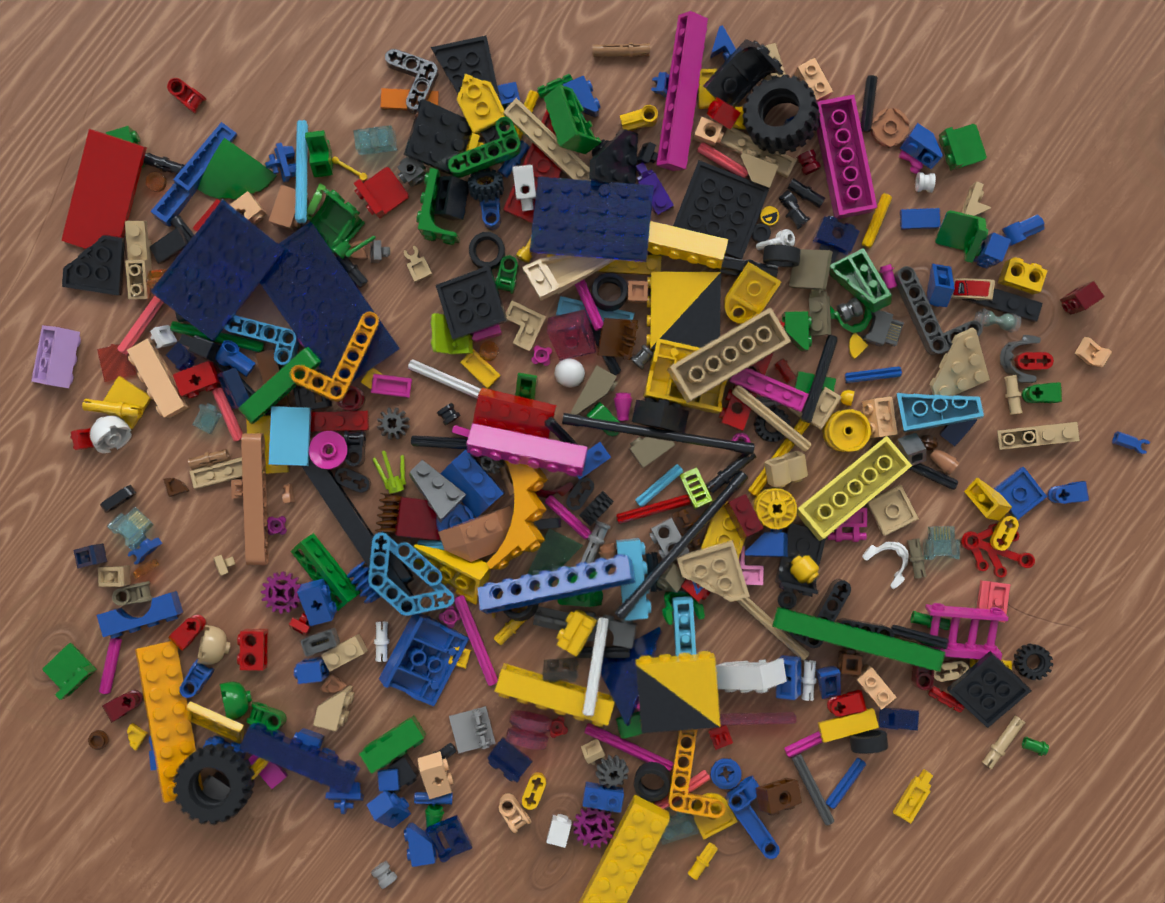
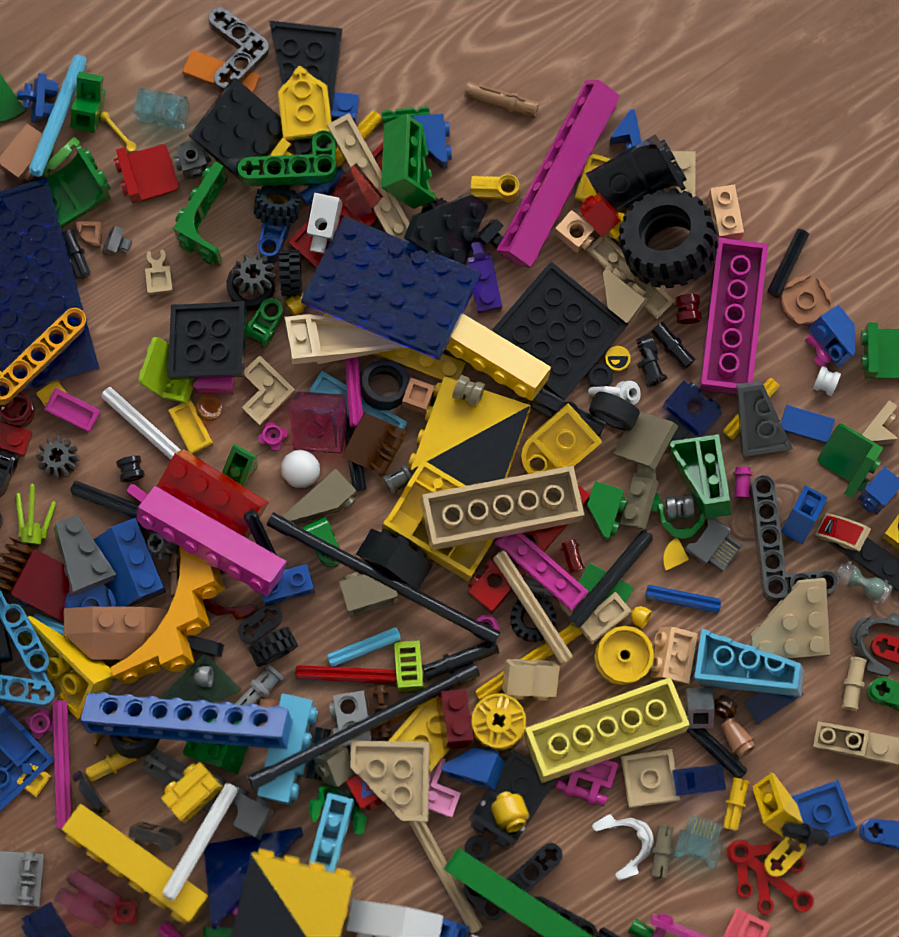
camera: 20 degrees right, 10 degrees down
(342, 246) = (74, 221): green plant -> none
(451, 198) = (229, 207): black brick -> none
(493, 237) = (243, 277): none -> dark grey gear
(505, 656) = (91, 794): none -> black tile
(513, 231) = (290, 272): none -> black tyre
(542, 156) = (357, 193): none -> clear red piece
(554, 546) = (203, 676): none -> light grey hinge
(568, 517) = (234, 648): dark pink axle -> none
(609, 652) = (220, 835): black axle -> none
(623, 404) = (353, 529): dark pink cone -> none
(662, 84) = (537, 155): blue tile -> none
(674, 277) = (468, 391): none -> dark tan wheel
(722, 160) = (581, 271): coral axle -> none
(888, 228) = (758, 421): none -> dark grey wing
(926, 500) = (698, 780): none -> clear blue slope
(957, 508) = (735, 804): none -> yellow axle
(1016, 514) = (805, 833): none -> black axle

